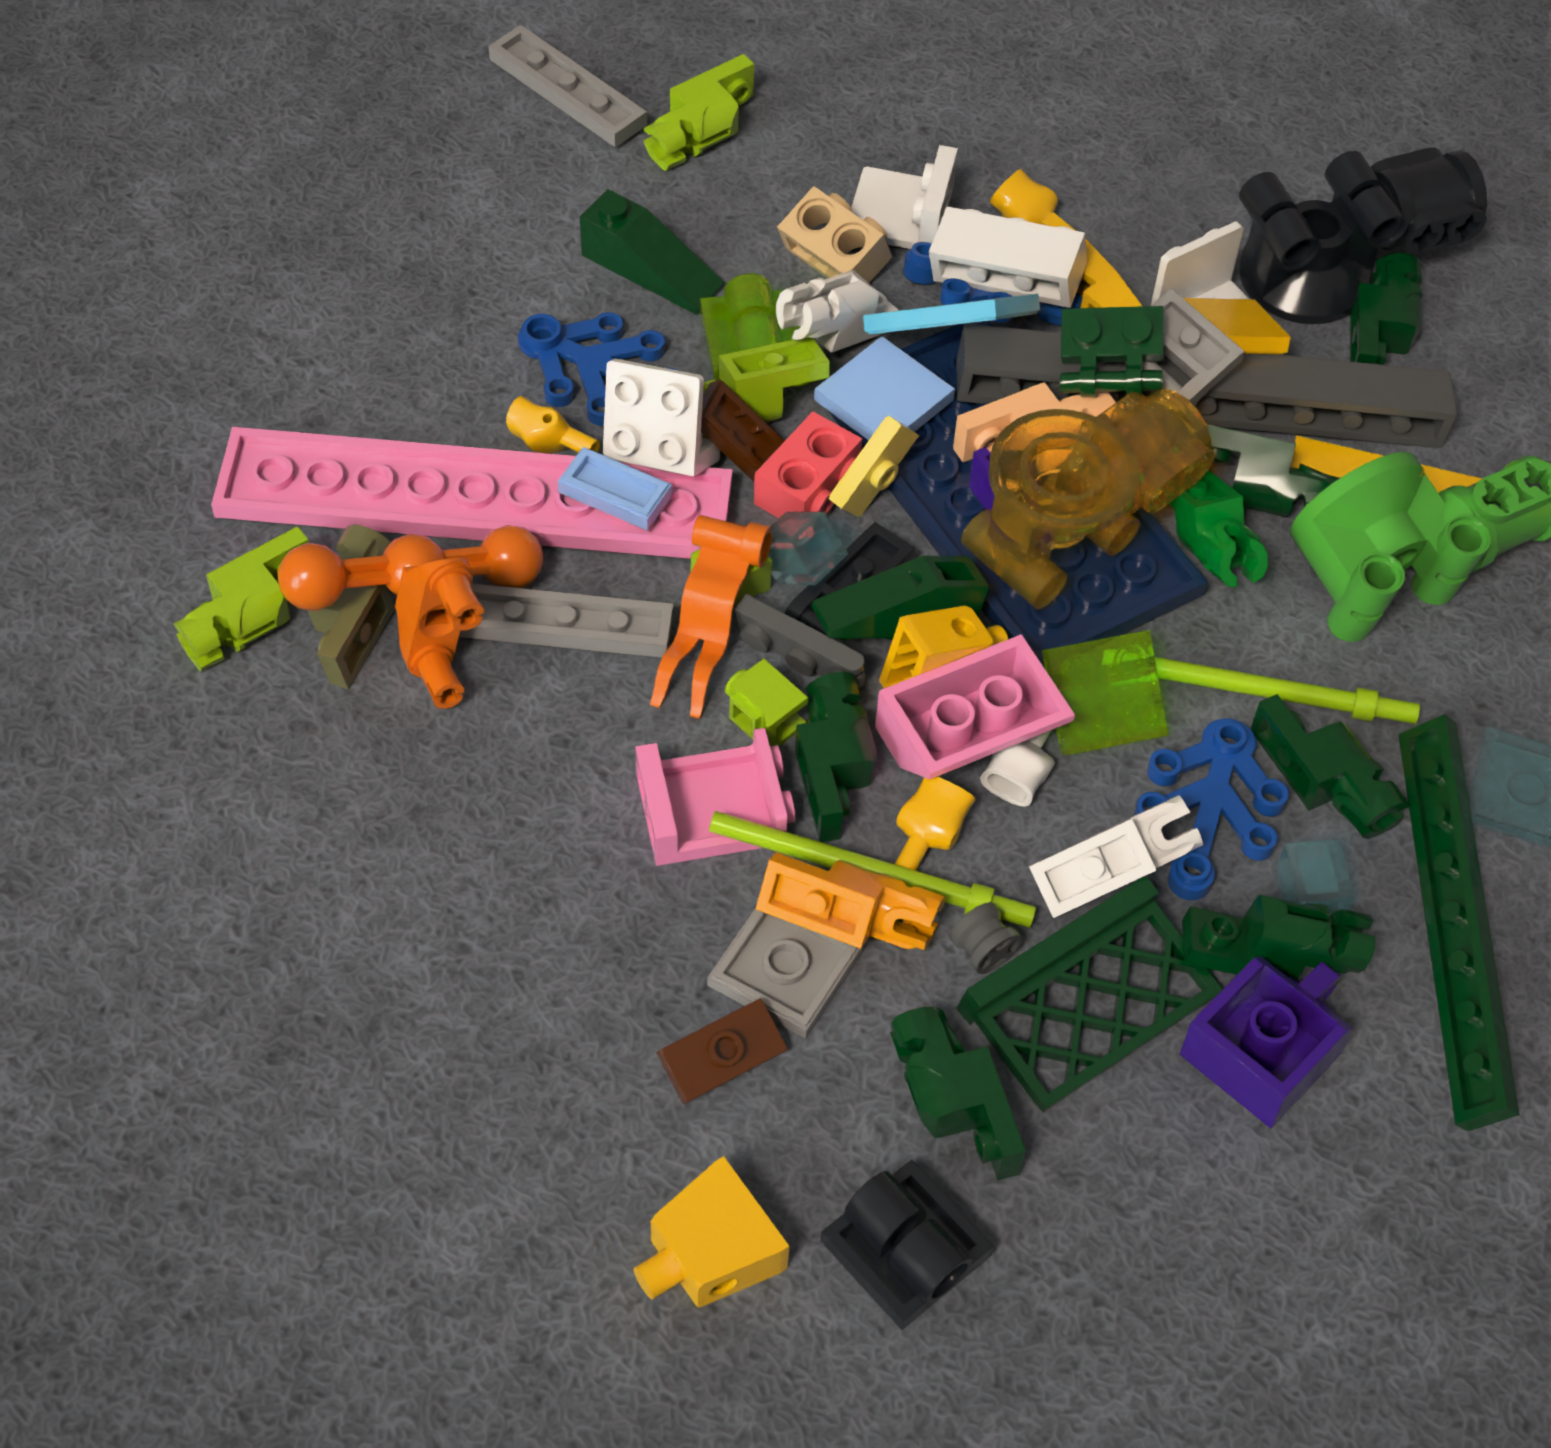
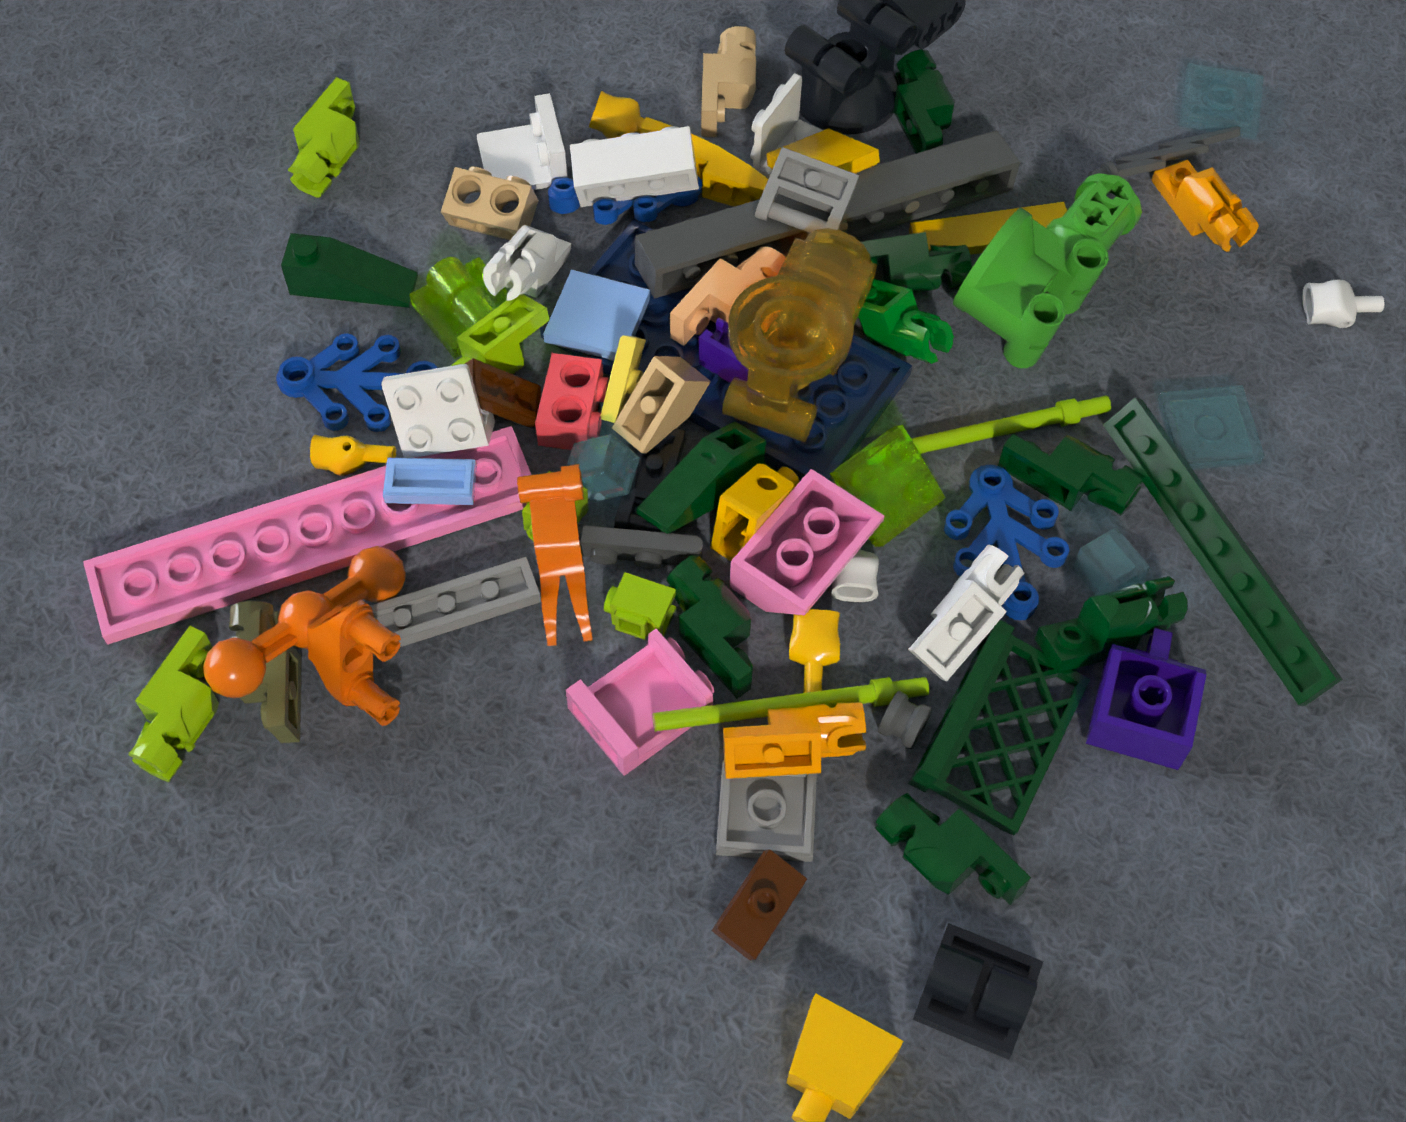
camera: 25 degrees left, 5 degrees up
(568, 85) = (202, 156): light grey plate -> none
(900, 503) = (660, 402): none -> tan slope
(951, 314) = (618, 231): medium azure tile -> none
(1112, 336) = (757, 202): dark green plate -> none
(1172, 207) = (728, 77): none -> tan plate

